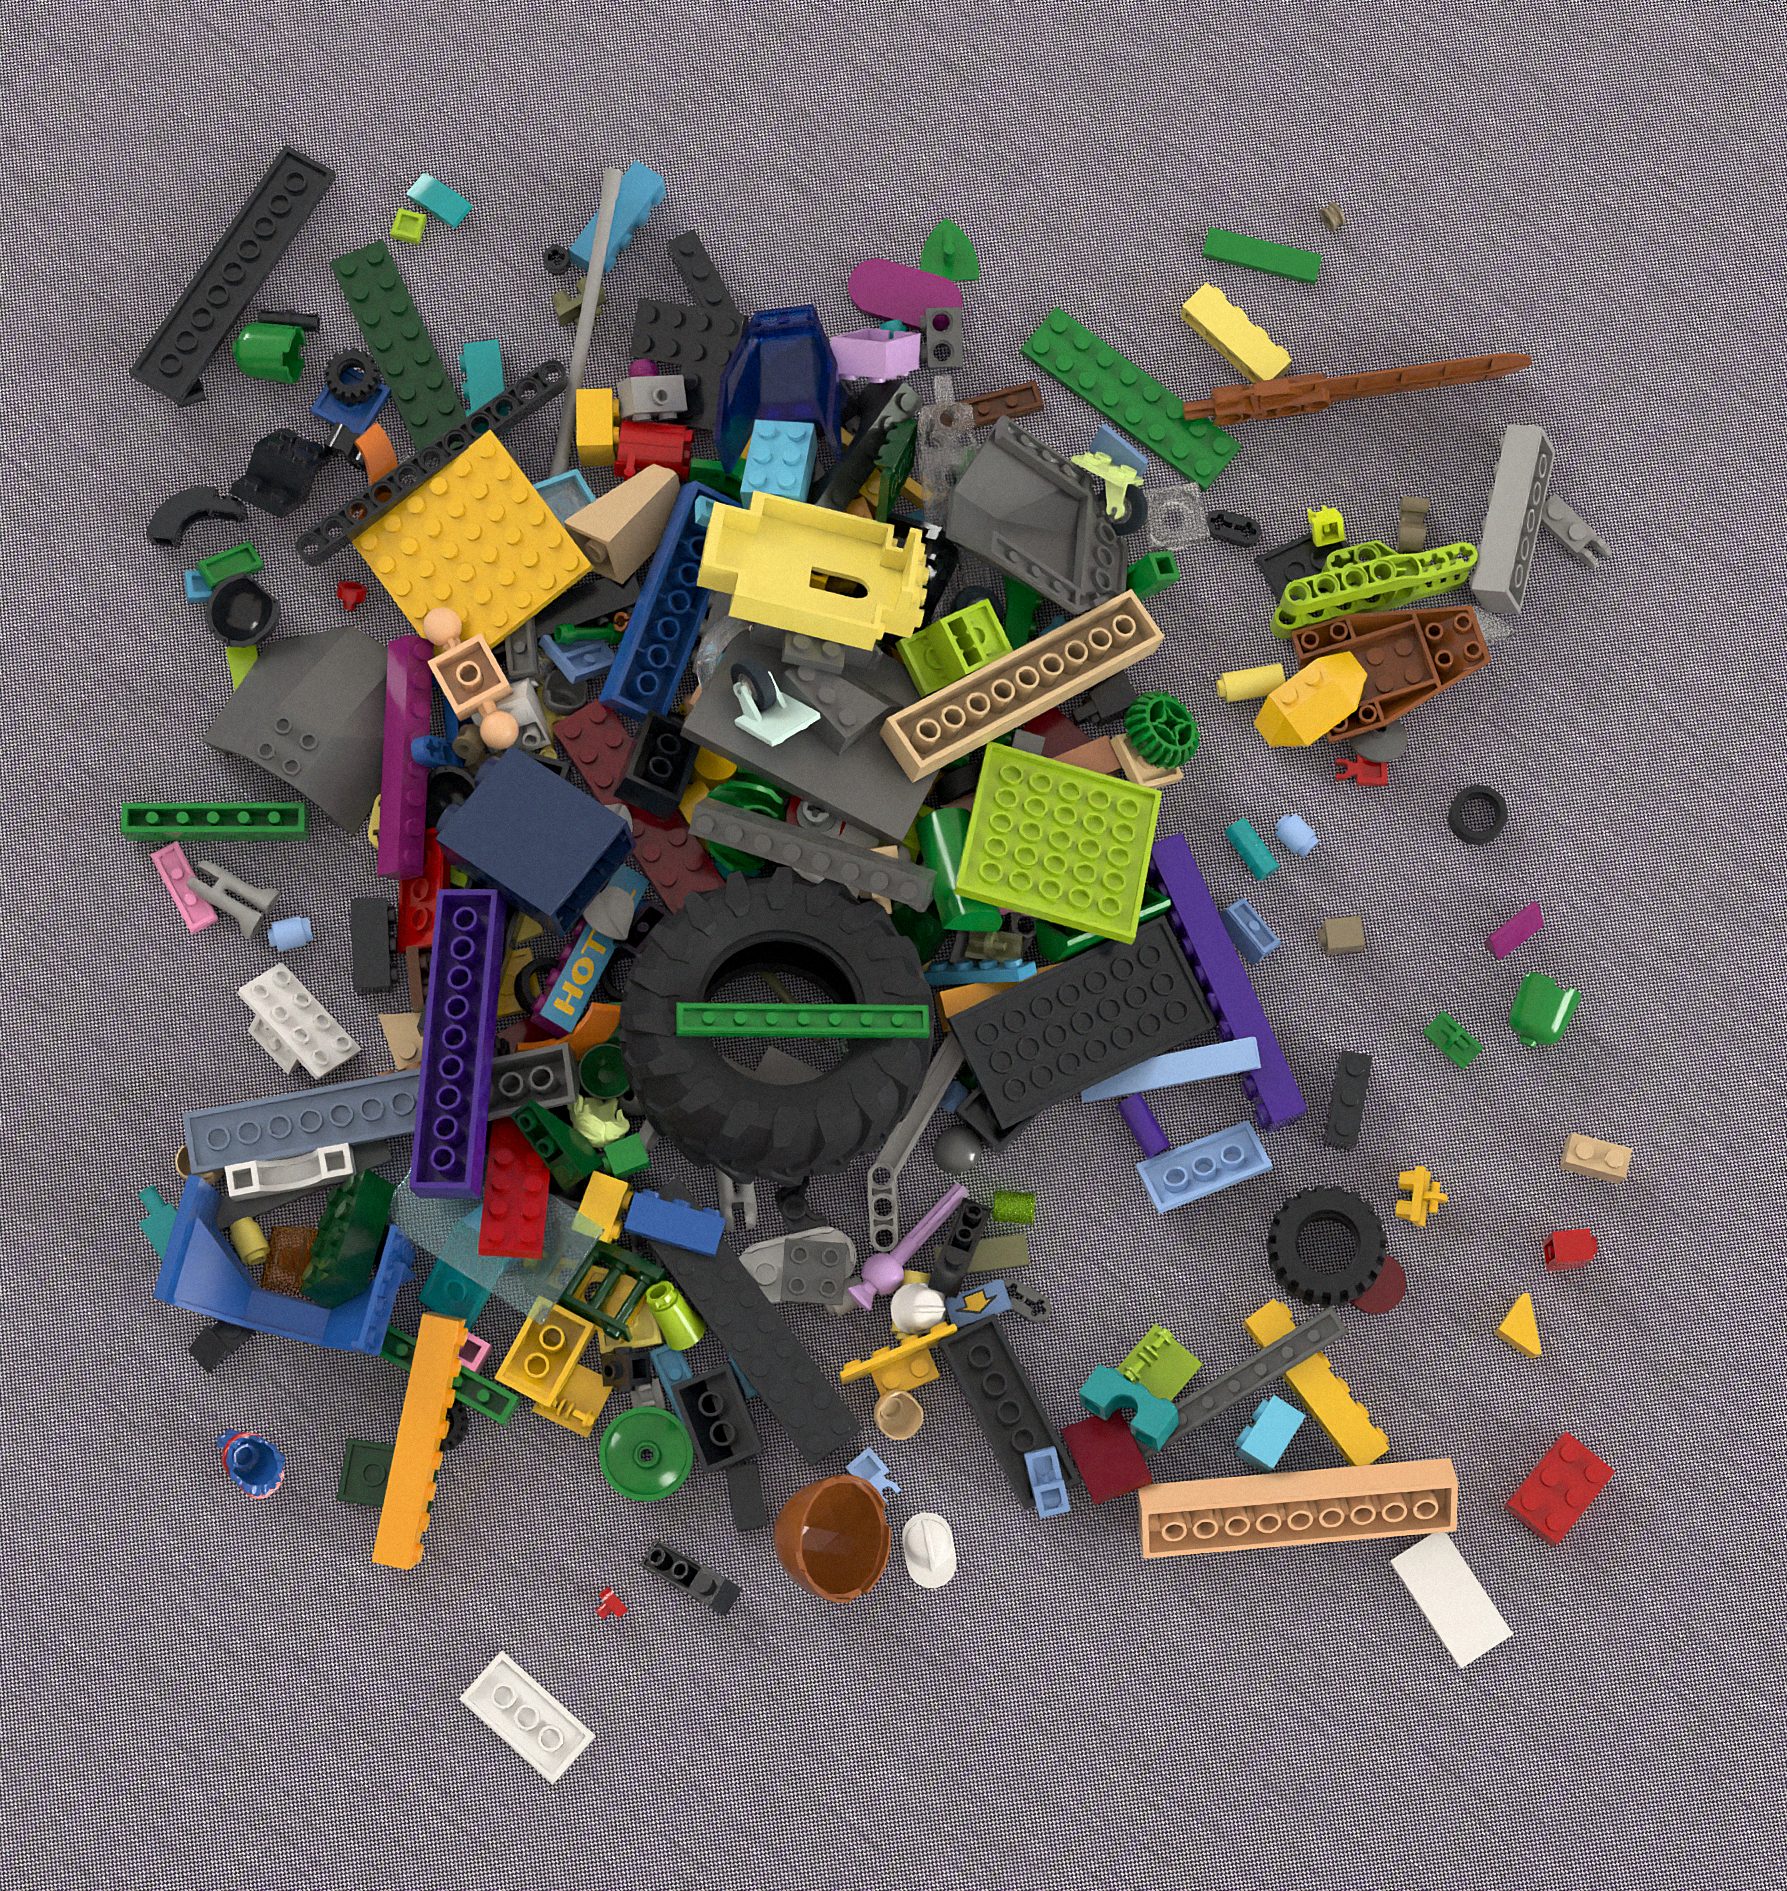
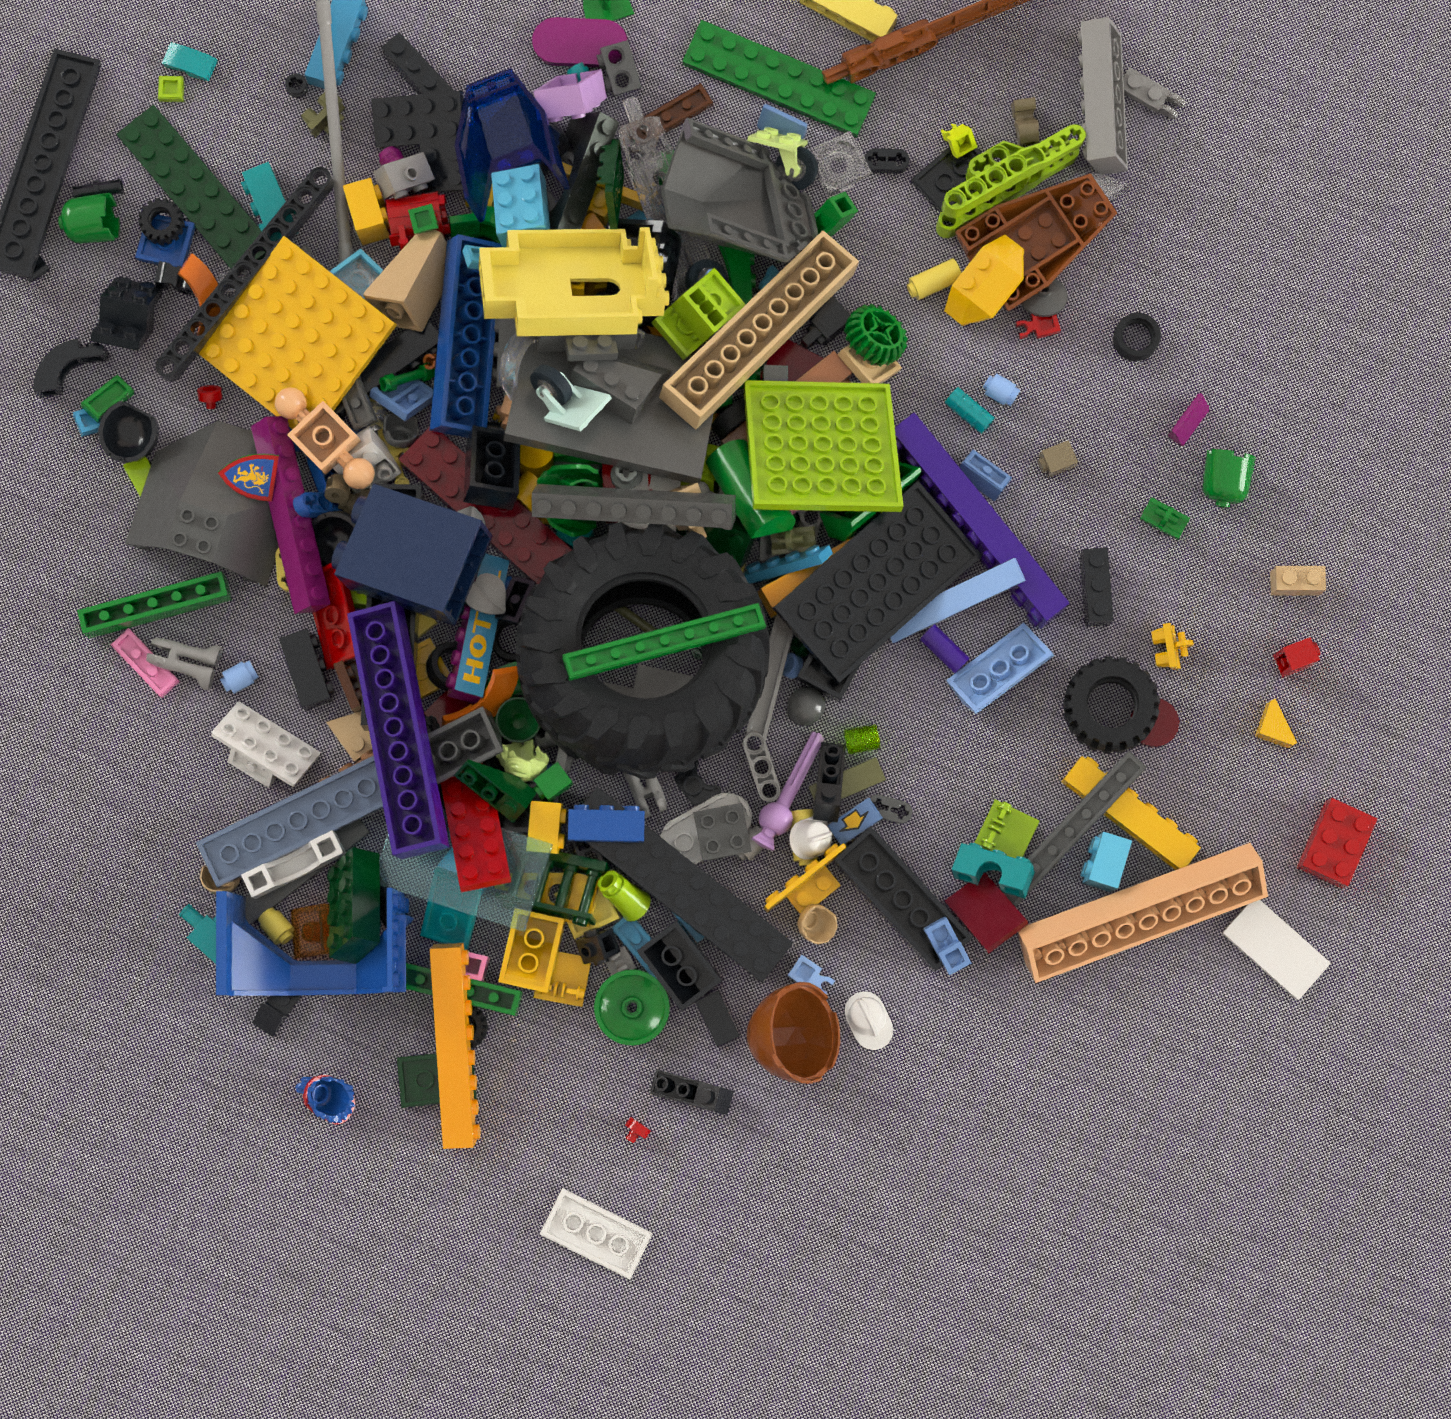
camera: 15 degrees left, 5 degrees up
(372, 699) = (252, 475): none -> shield
(660, 453) = (423, 219): none -> green plate

